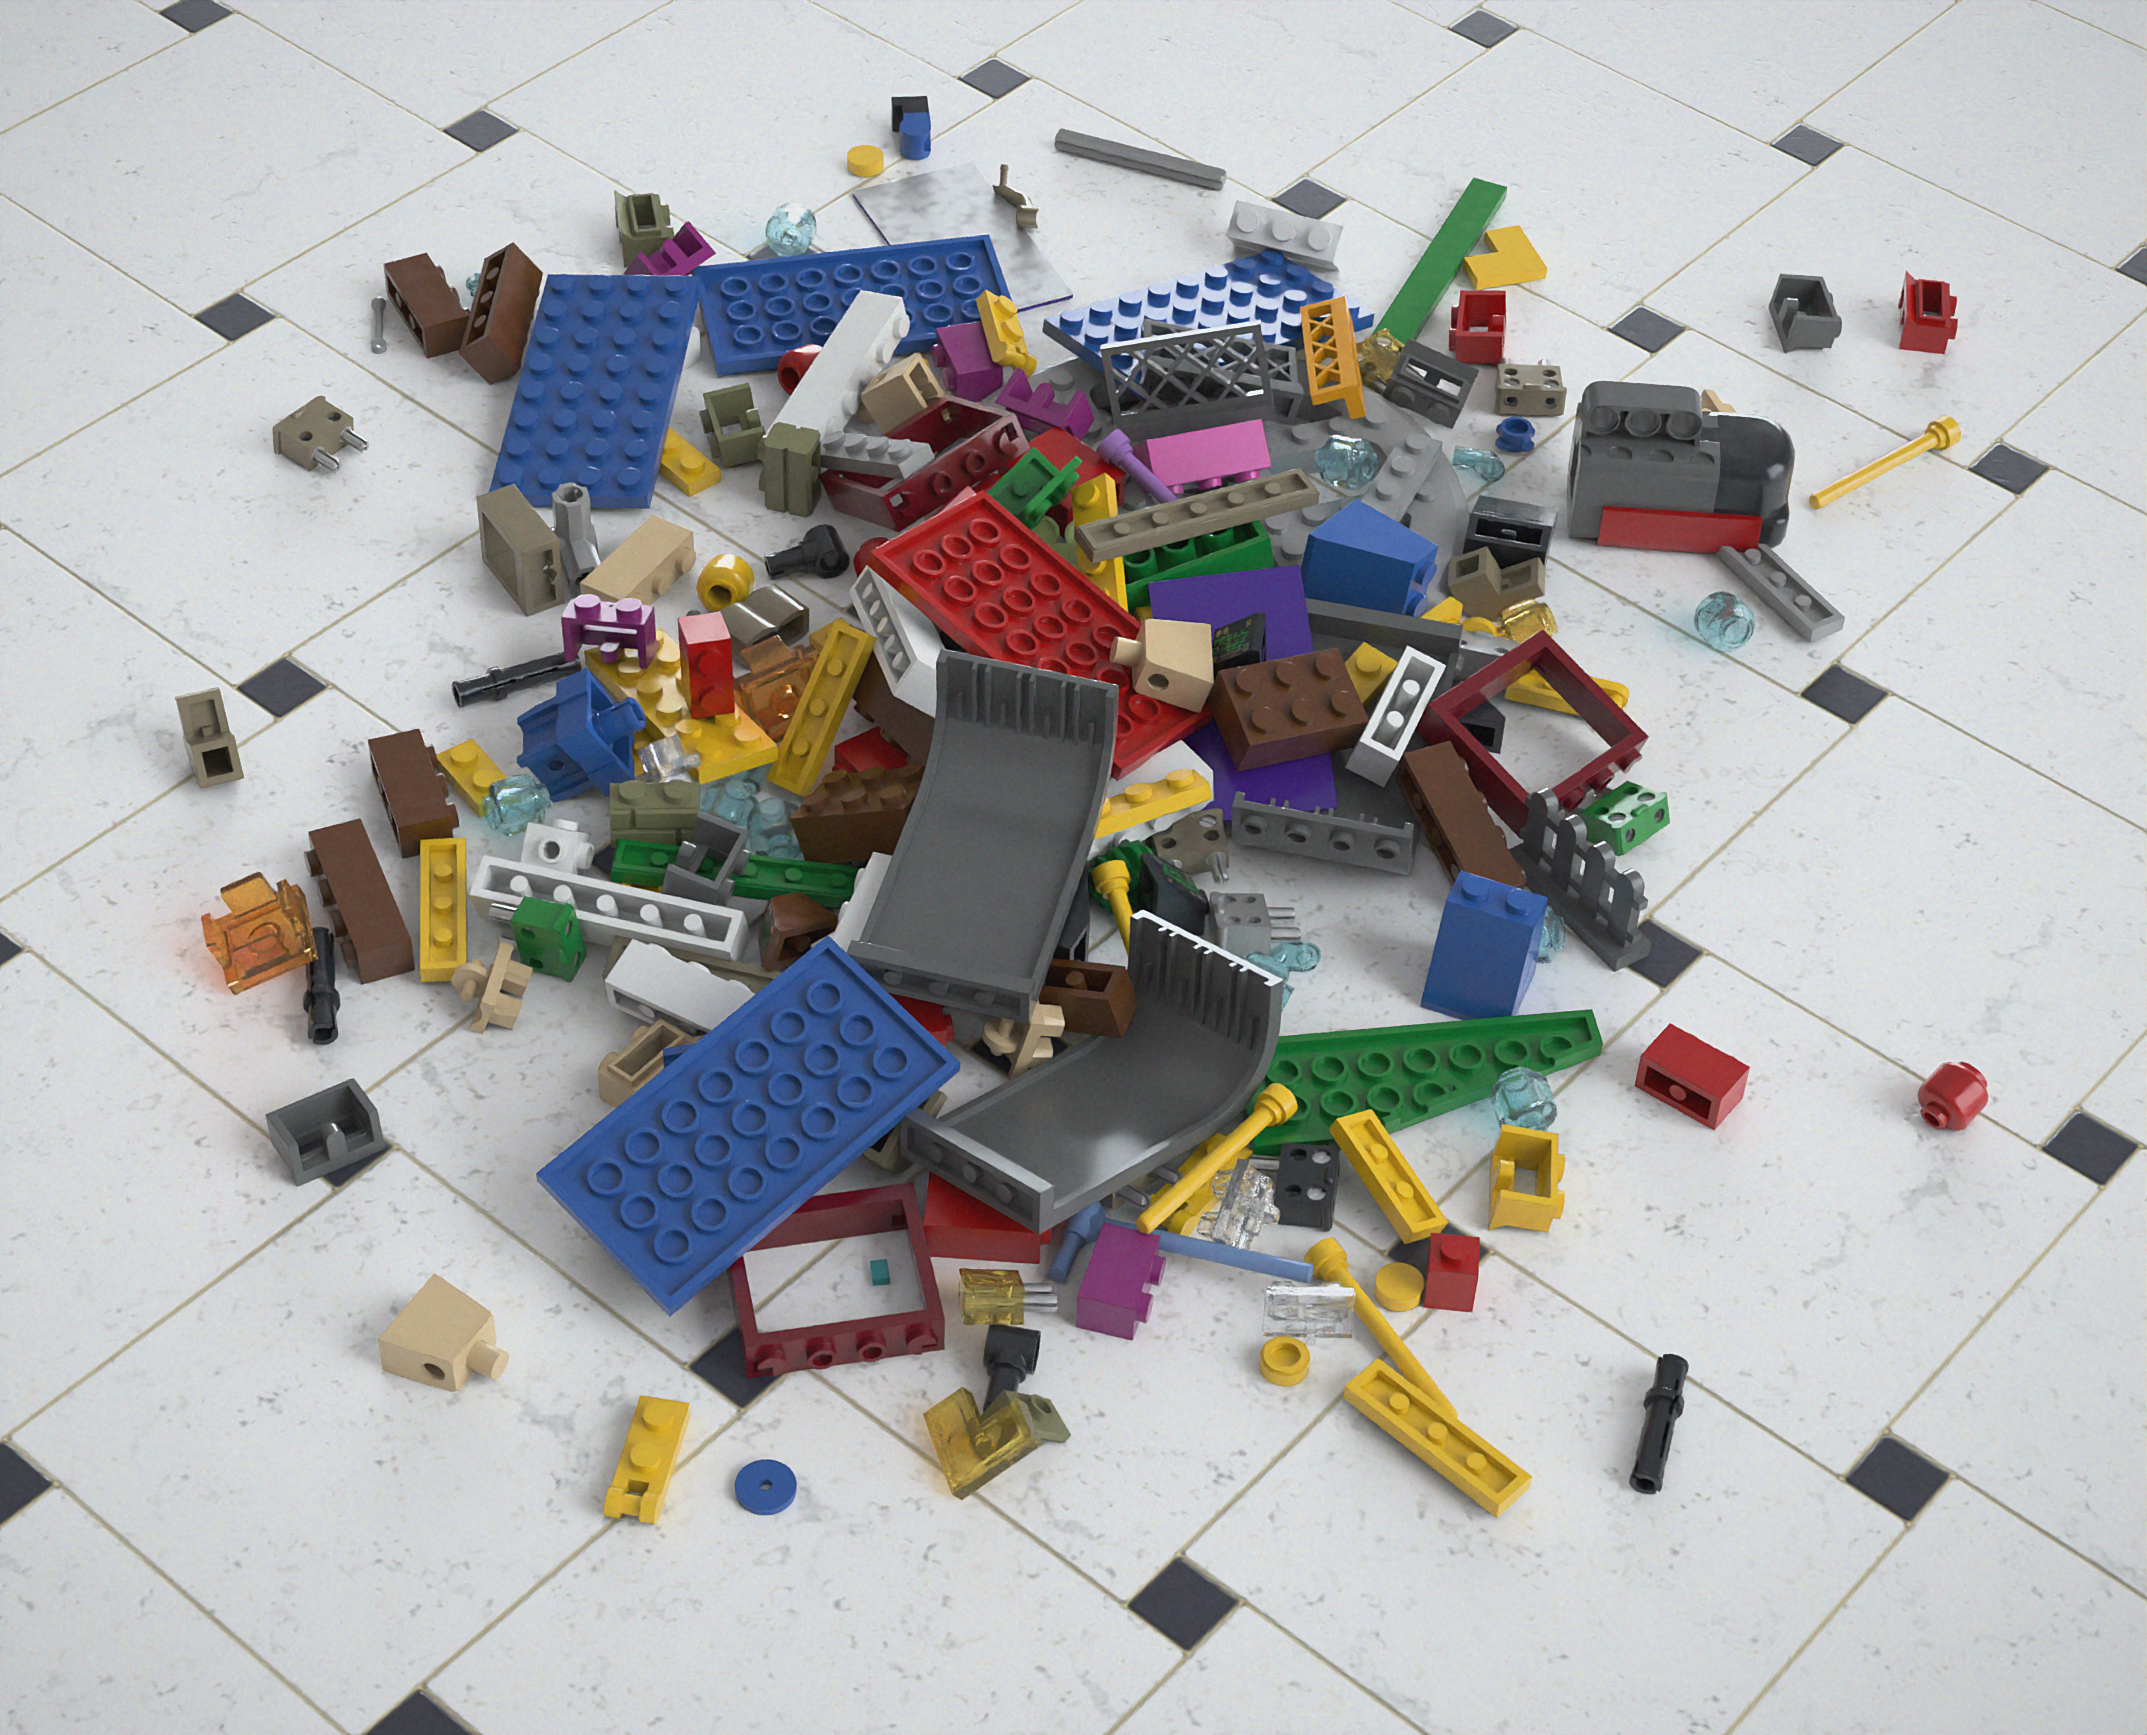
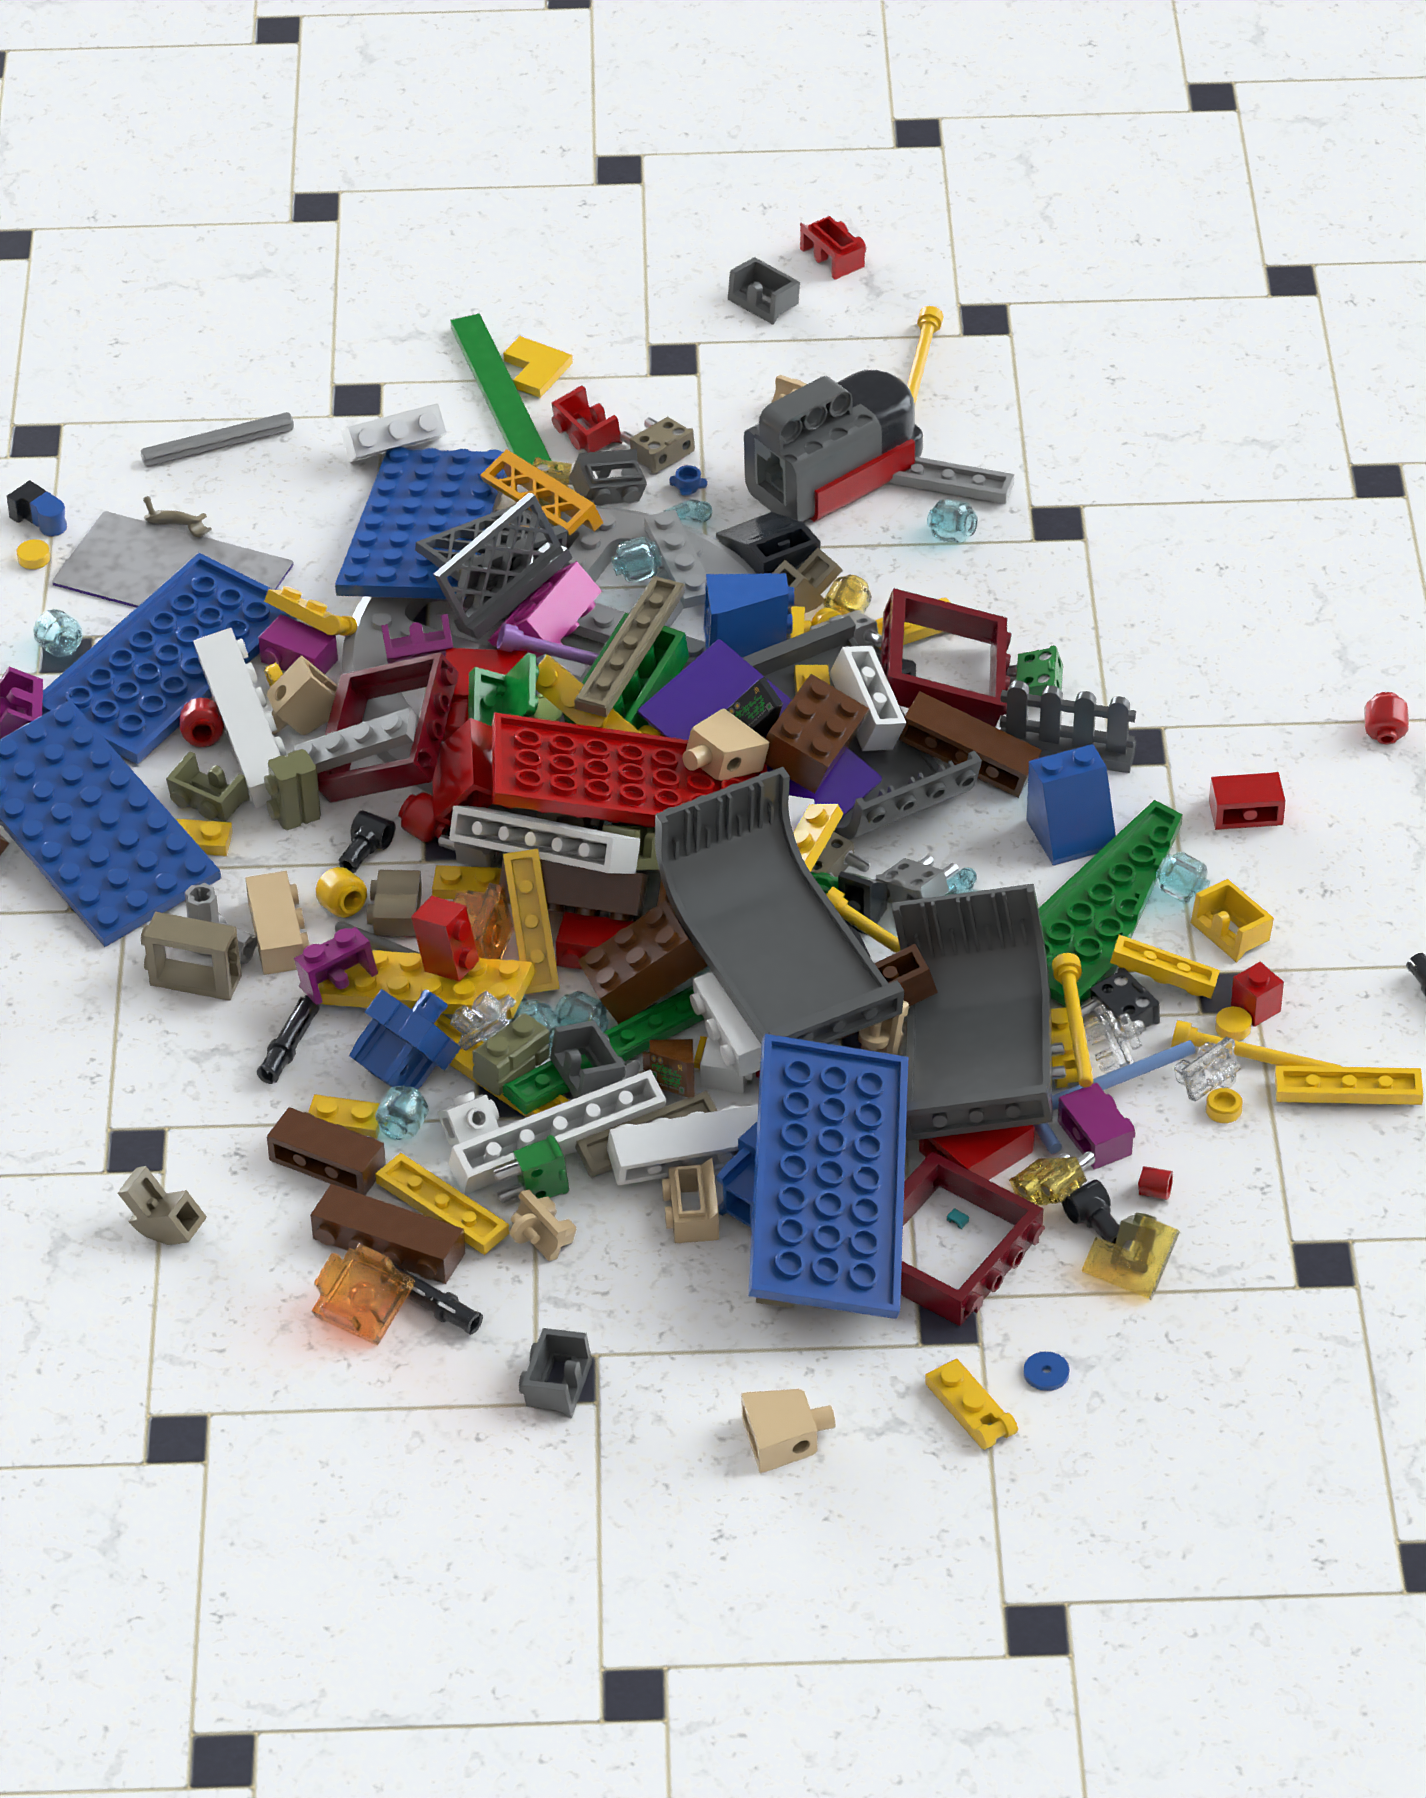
camera: 40 degrees left, 0 degrees up
(1108, 1384) = (1155, 1182): none -> red hose

